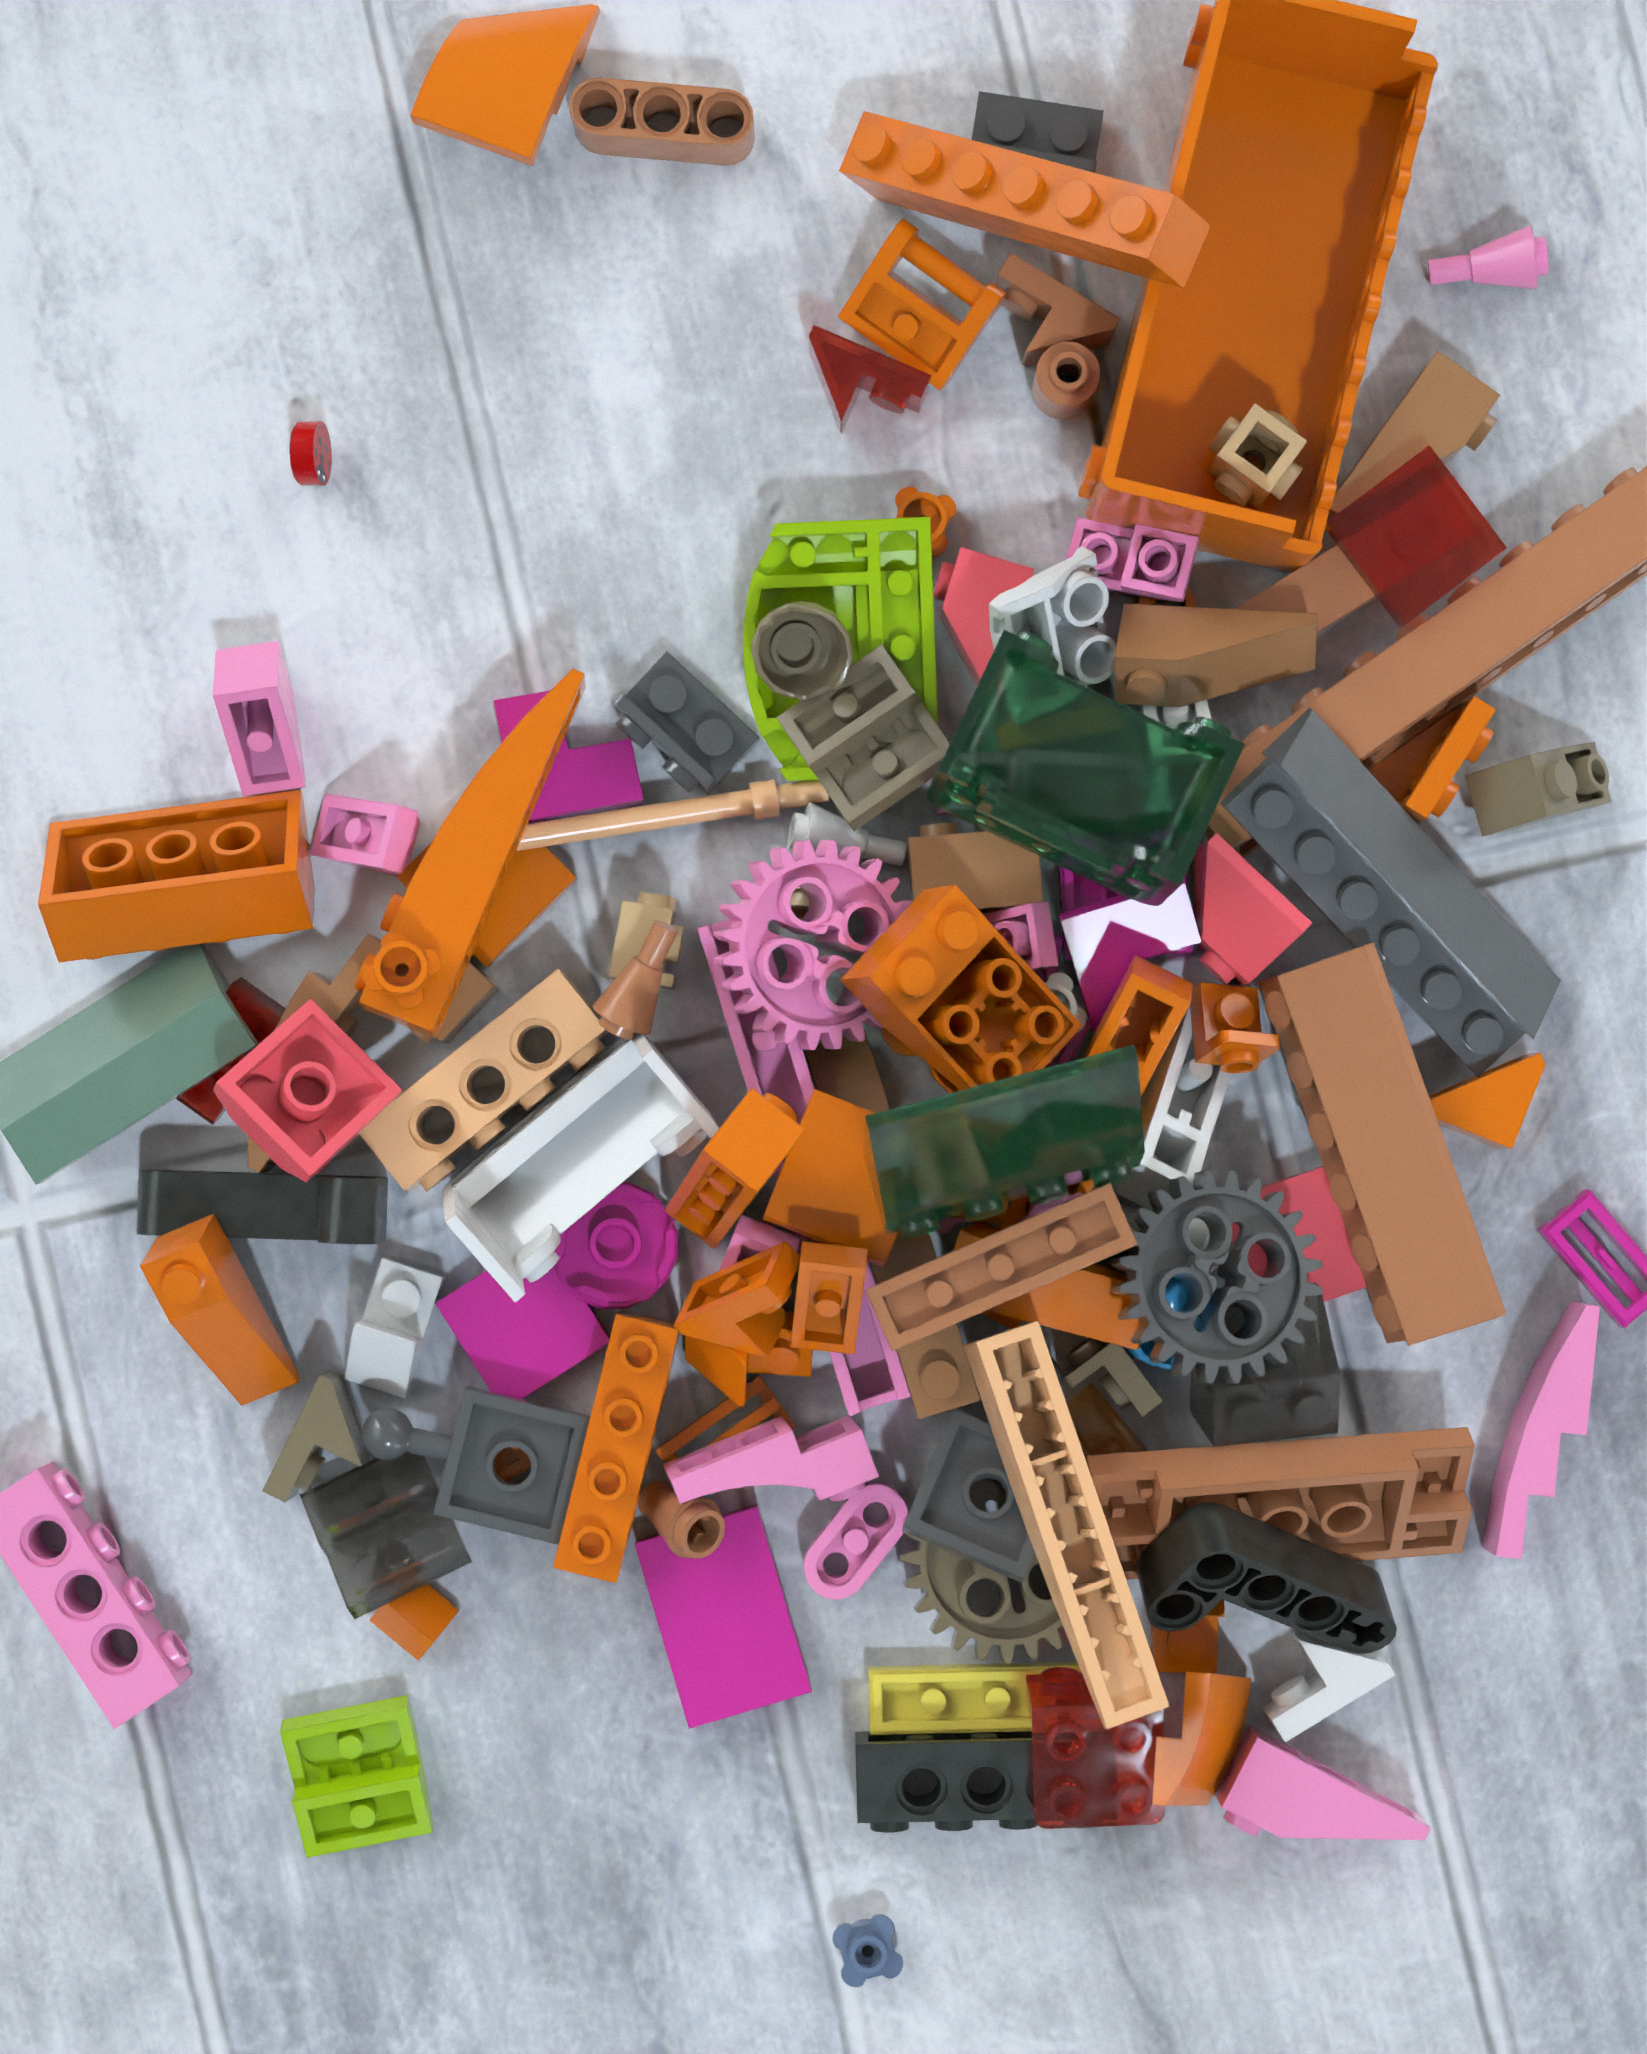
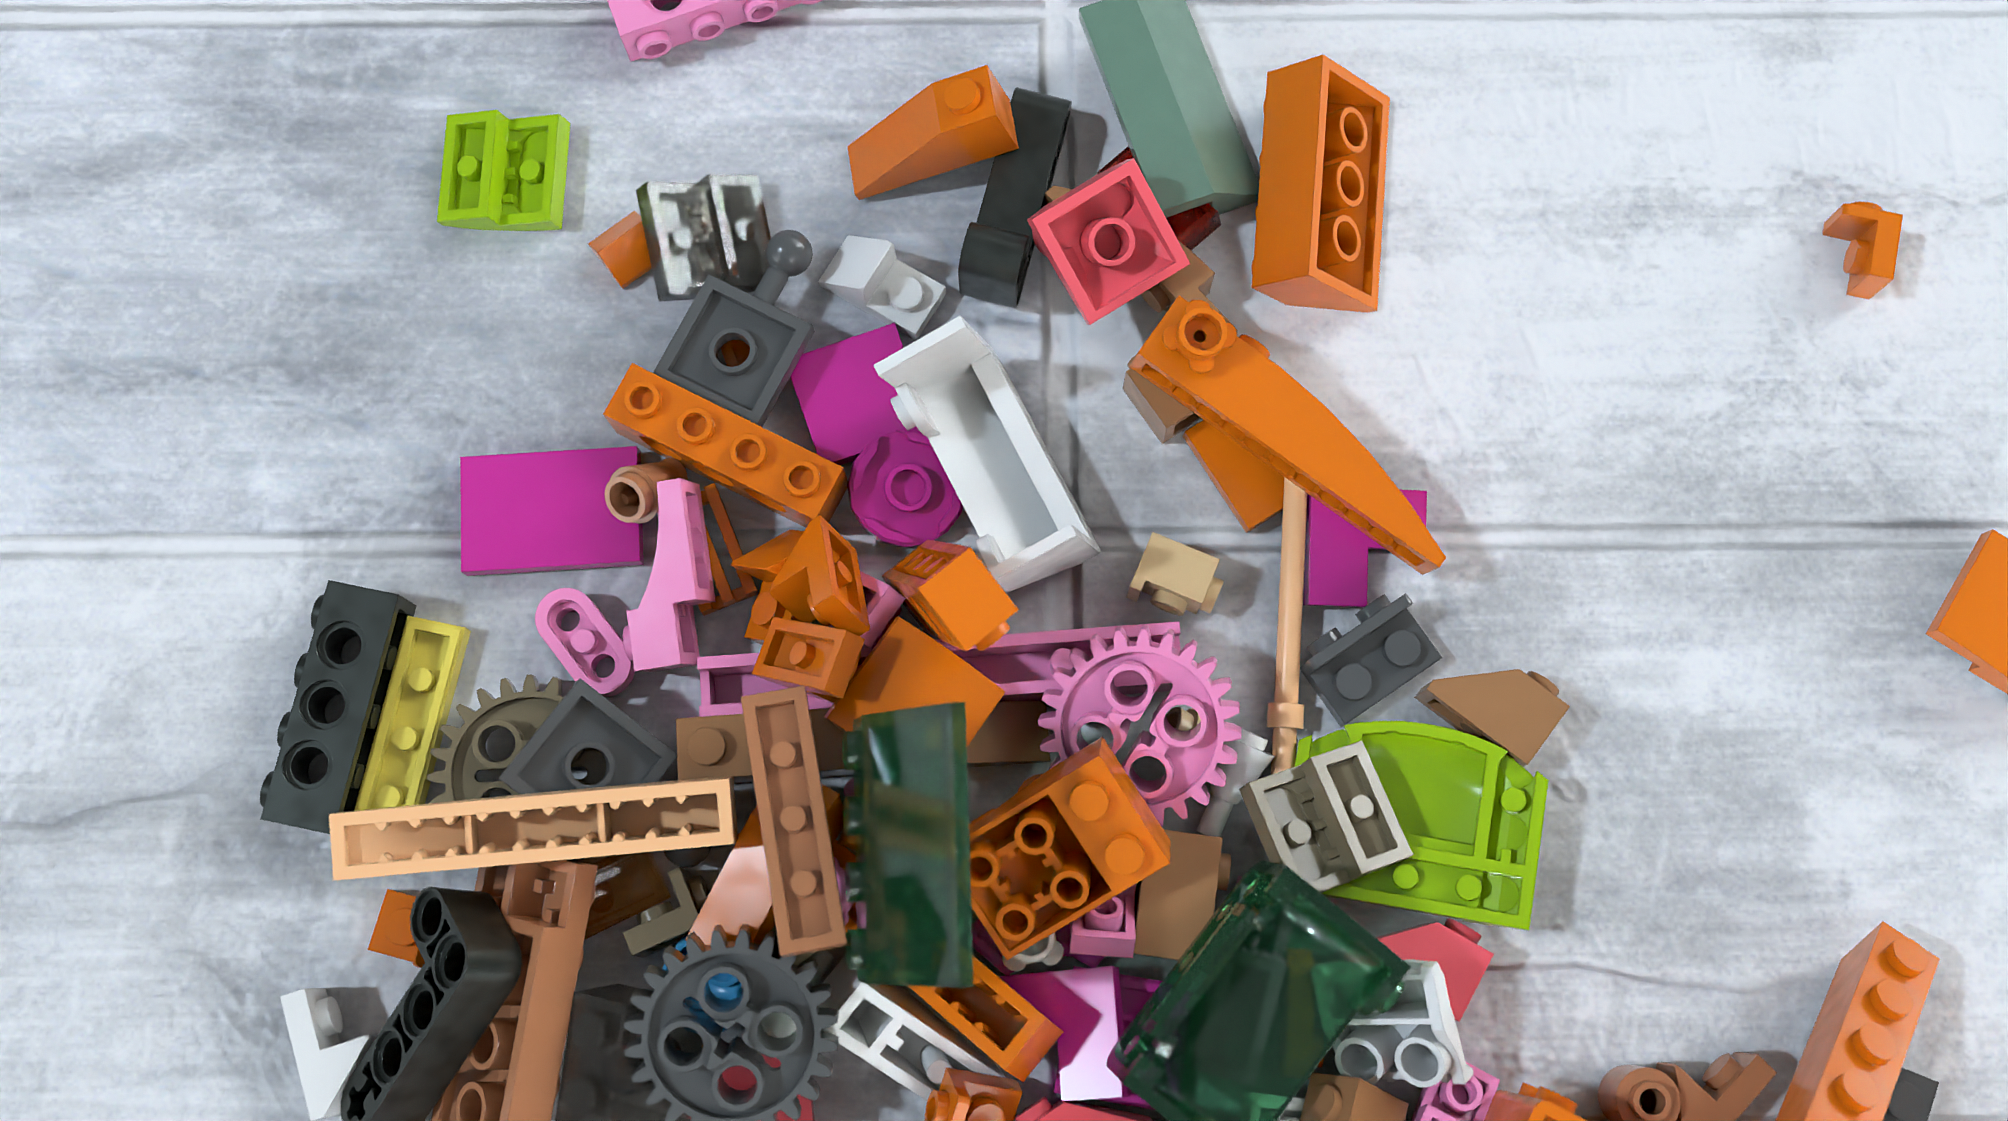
camera: 105 degrees right, 10 degrees down
(123, 275) = (1872, 247): none -> orange bracket
(259, 717) = (1450, 284): bright pink slope -> none
(310, 453) = (1683, 381): red tile -> none
(326, 1423) = (810, 202): dark tan slope -> none
(365, 834) = (1326, 354): bright pink slope -> none
(398, 1130) = (1054, 323): light nougat brick -> none
(632, 996) = (1126, 544): nougat cone -> none
(640, 100) = (1972, 749): nougat beam -> none
(710, 582) = (1499, 707): none -> medium nougat slope
(802, 650) = (1423, 774): dark tan hair -> none
(849, 367) = (1682, 894): clear red slope -> none
(873, 1932) = (232, 579): sand blue plate -> none
(908, 321) = (1719, 958): orange plate -> none
(939, 509) = (1530, 943): orange plate -> none
(1081, 1768) = (300, 791): clear red bracket -> none
(1213, 1720) = (307, 924): orange slope -> none
(1302, 1798) = (223, 1010): bright pink slope -> none

